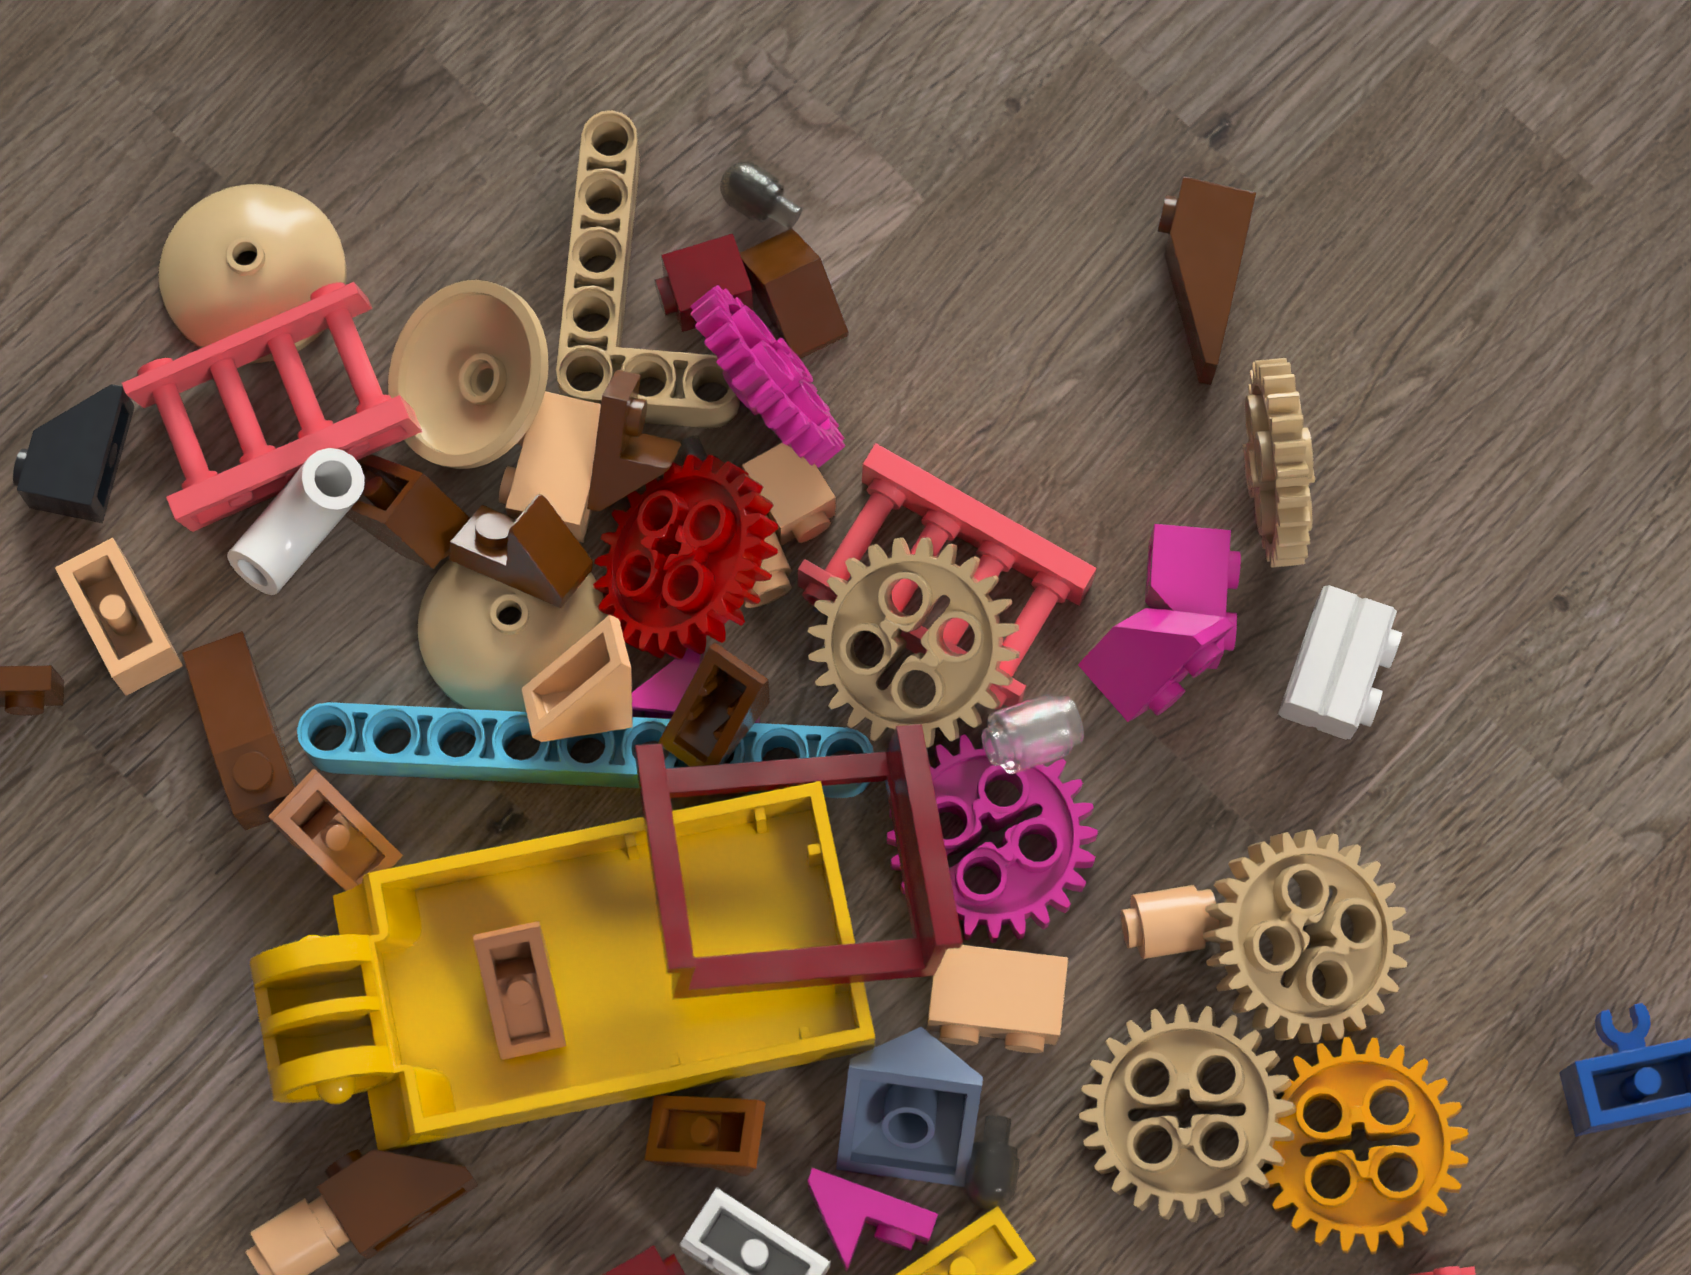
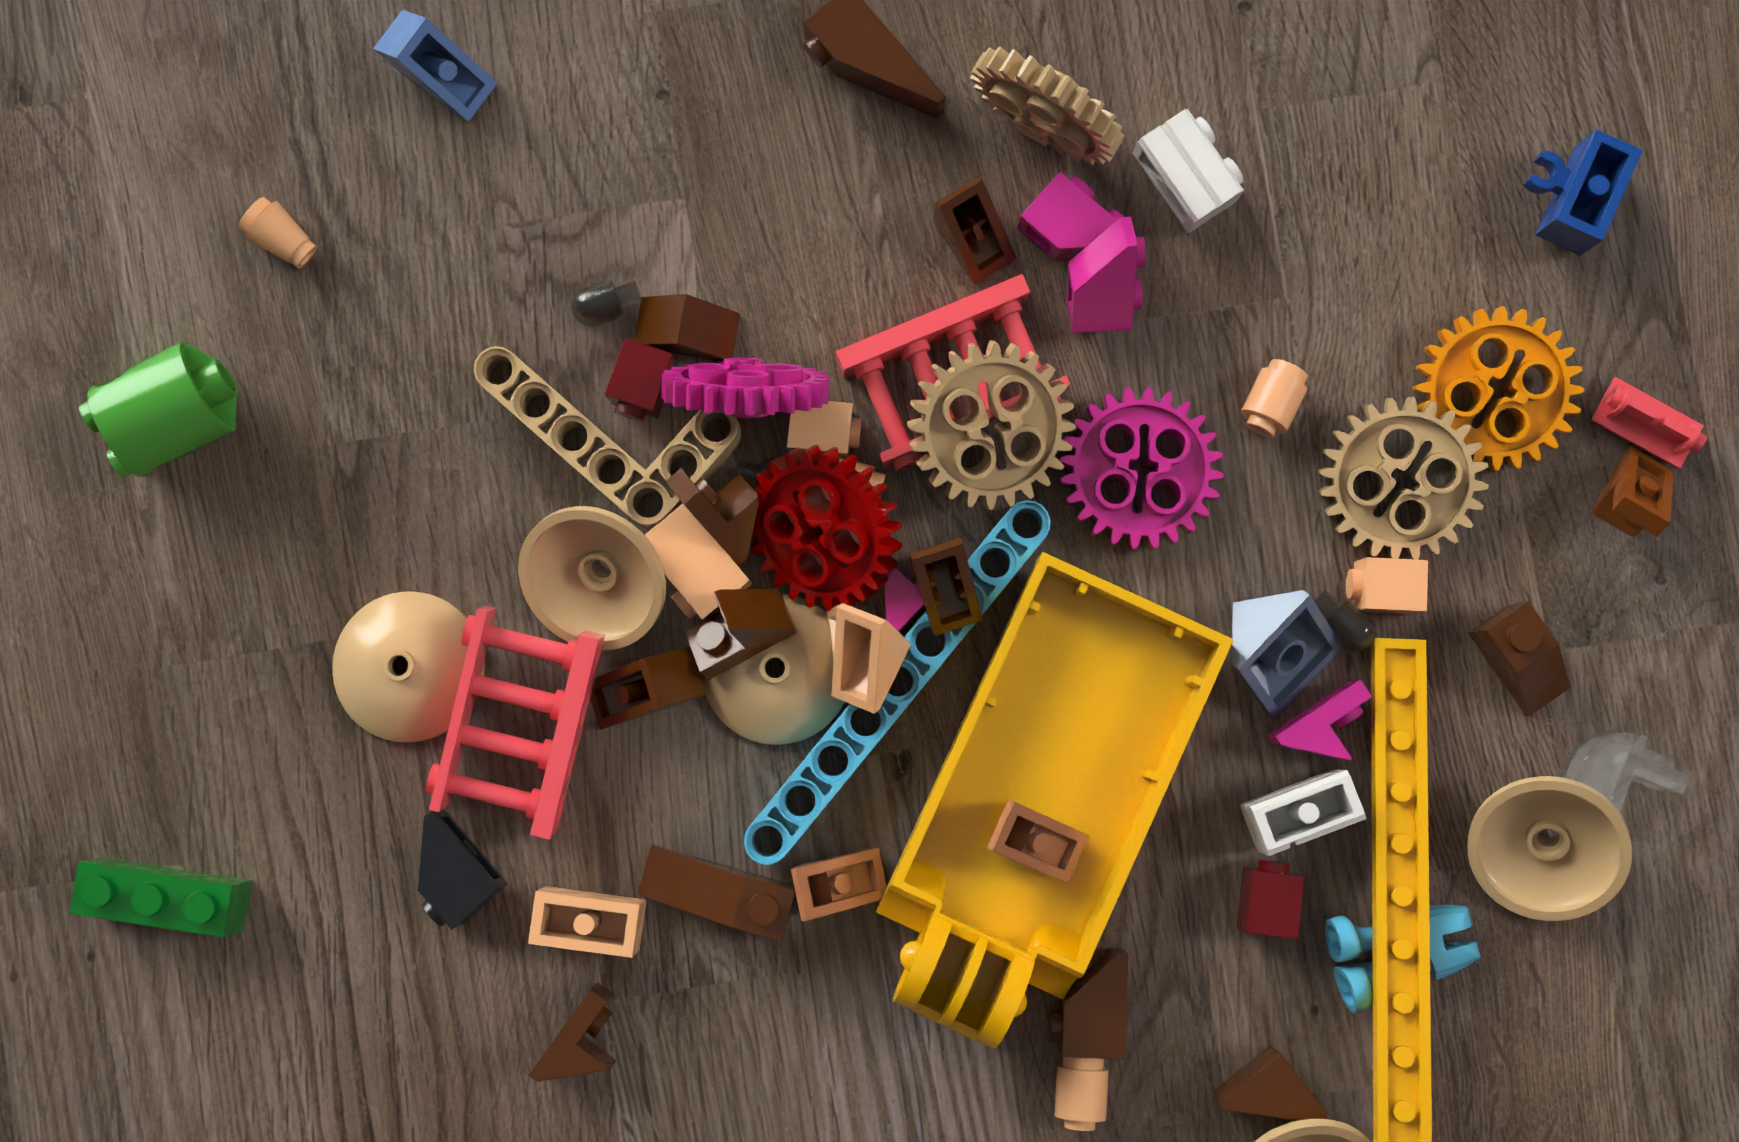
camera: 50 degrees left, 10 degrees up
(297, 520) = (608, 758): white cylinder -> none
(706, 1133) = (1204, 784): dark orange slope -> none
(919, 849) = (1134, 522): dark red piece -> none
(998, 997) = (1244, 540): light nougat brick -> none
(1032, 733) = (1103, 394): clear brick -> none
(1063, 1179) = (1388, 585): none -> light nougat brick
(1107, 493) = (973, 230): none -> reddish brown slope
(1351, 968) = (1348, 323): tan gear -> none

